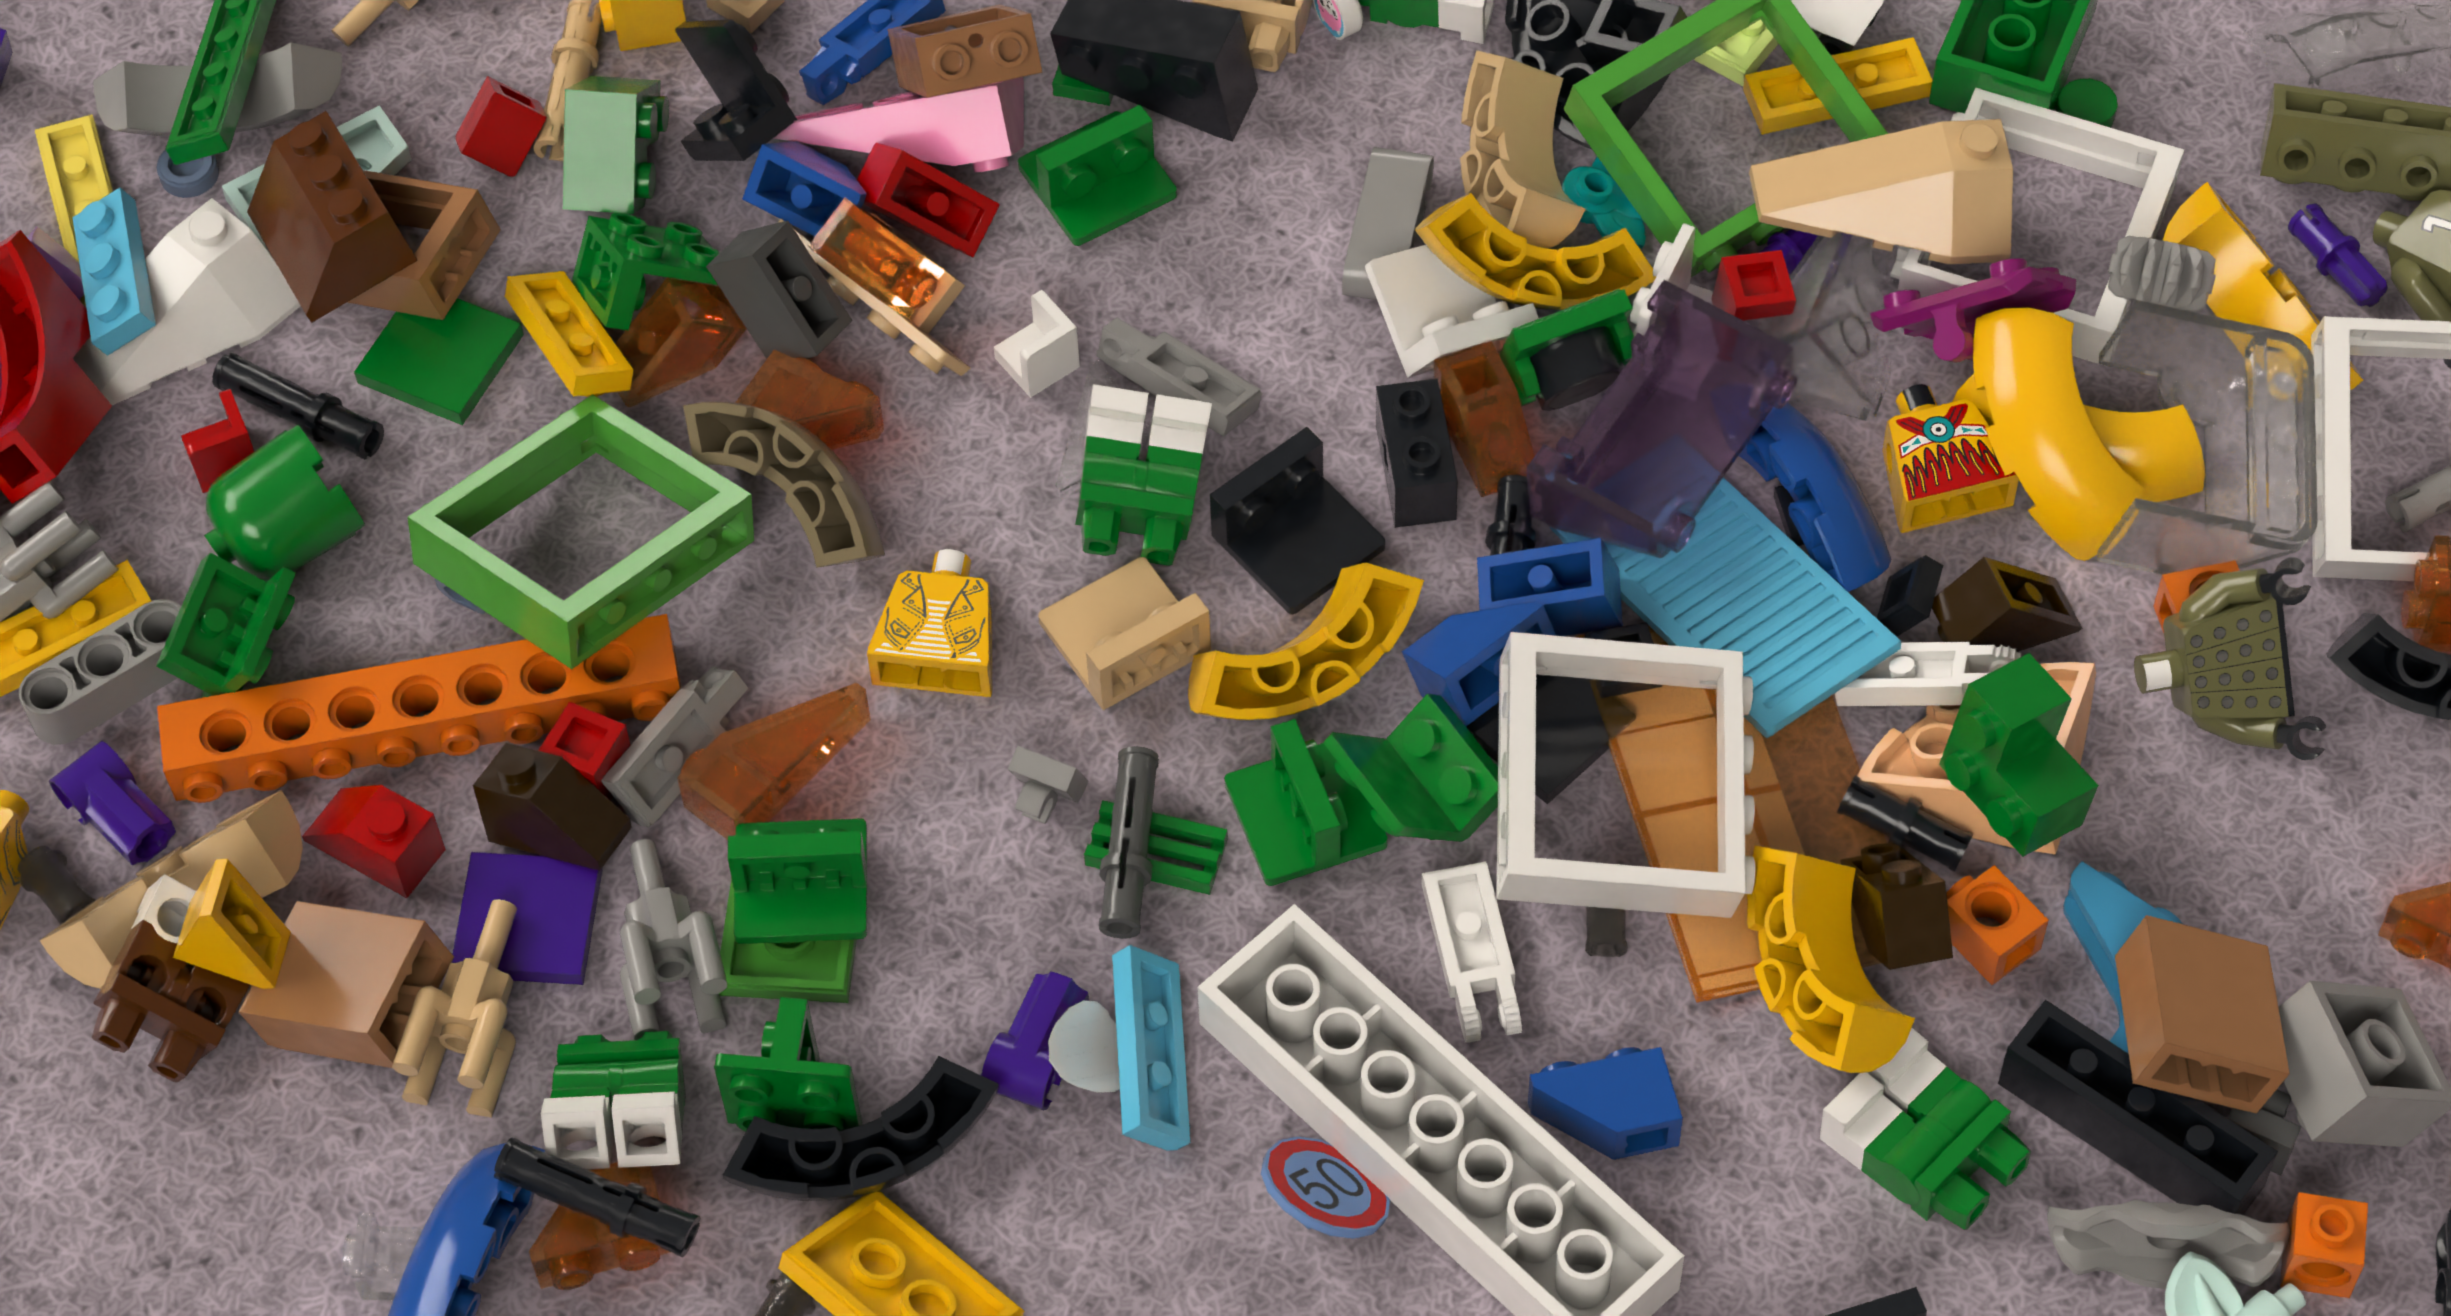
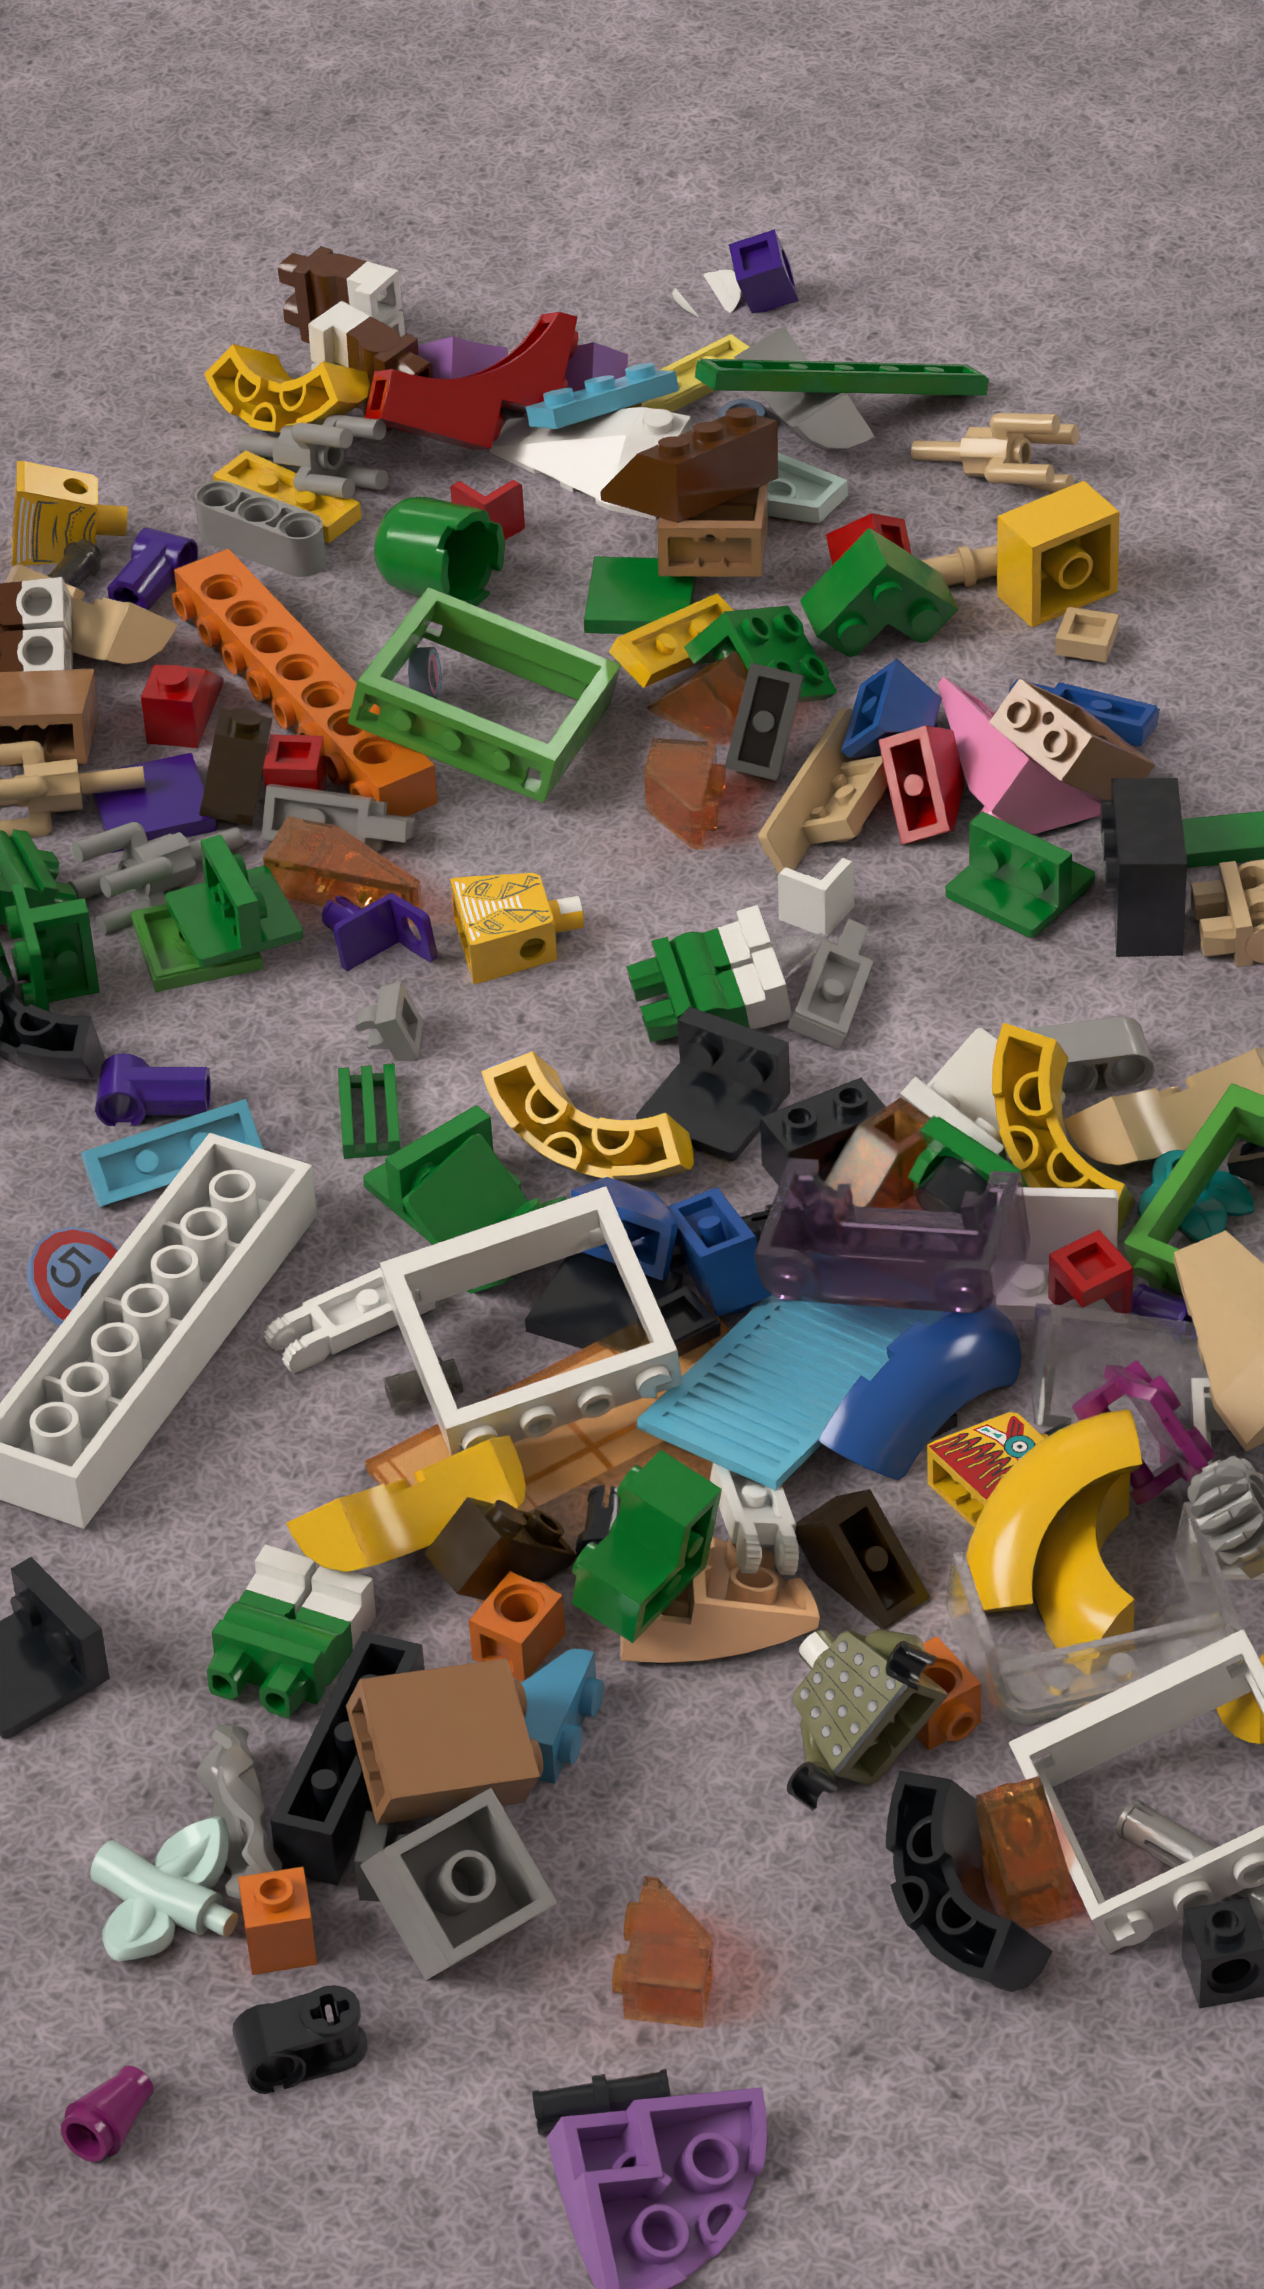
camera: 70 degrees right, 15 degrees down
(226, 627) = (308, 556): green bracket -> none
(232, 930) = (32, 624): yellow slope -> none
(319, 416) = (545, 550): black pin -> none
(751, 99) = (961, 644): black bracket -> none
(801, 464) = (591, 808): dark tan brick -> none
(874, 764) = (377, 927): none -> dark purple bracket
(877, 258) = (821, 754): clear orange slope -> none
(1086, 1048) = (148, 1104): white sticker -> none
(1126, 631) = (561, 1025): tan bracket -> none
(1128, 843) = (340, 1082): dark grey pin -> none
(1612, 1103) = (235, 1434): blue slope -> none
(1910, 595) = (832, 1483): black tile -> none

